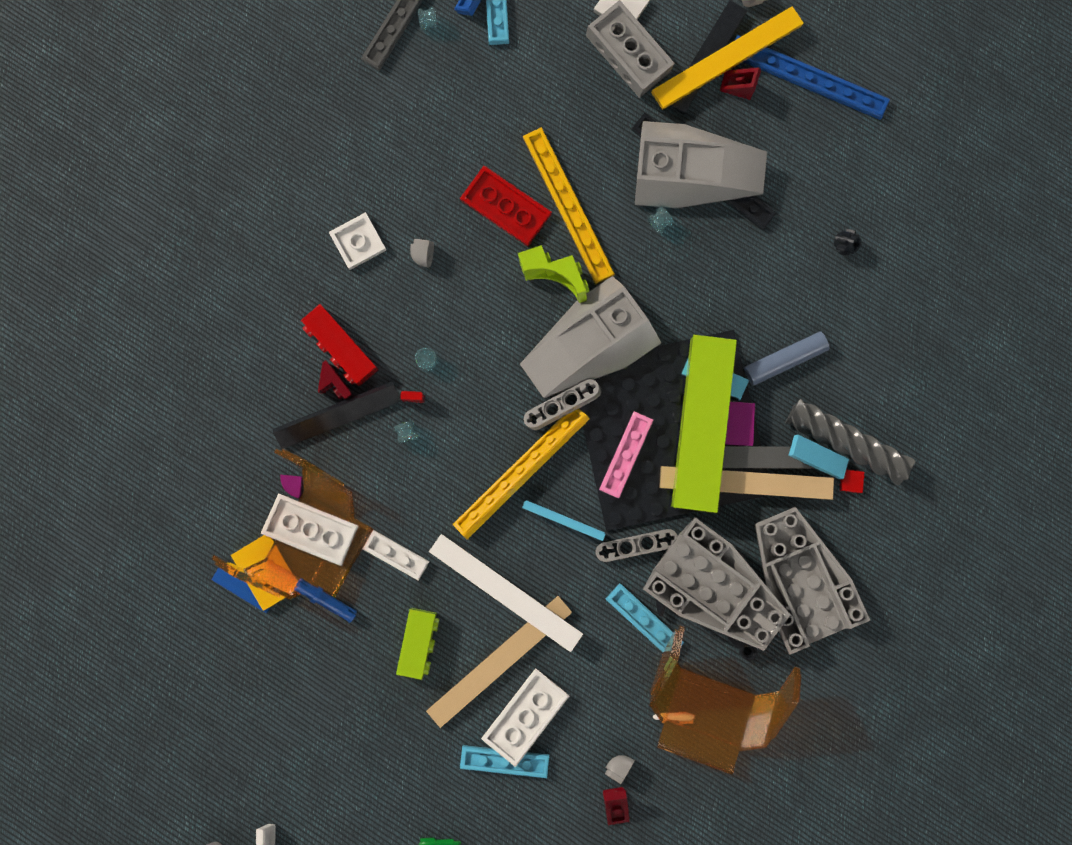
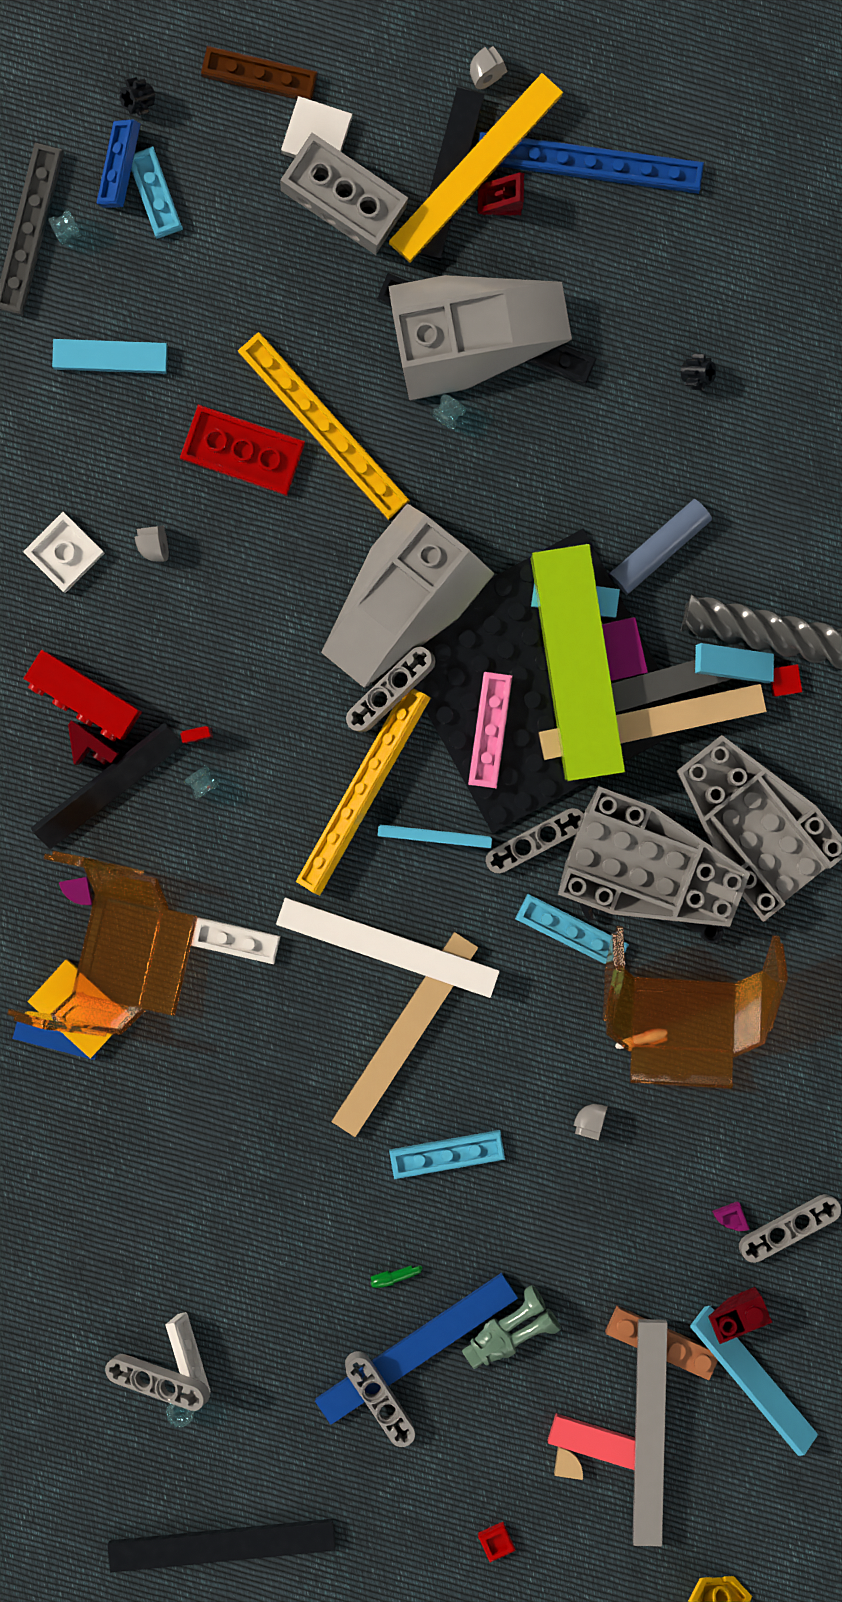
camera: 15 degrees left, 5 degrees up
(310, 529) = (117, 940): white tile -> none
(320, 597) = (152, 1019): blue pin -> none
(417, 643) = (296, 1042): lime brick -> none
(423, 356) = (195, 678): clear light blue wheel -> none
(432, 115) = (110, 356): none -> medium azure tile
(525, 717) = (457, 1093): white tile -> none
(538, 265) = (307, 517): lime arch -> none
(616, 805) = (599, 1167): dark red slope -> none

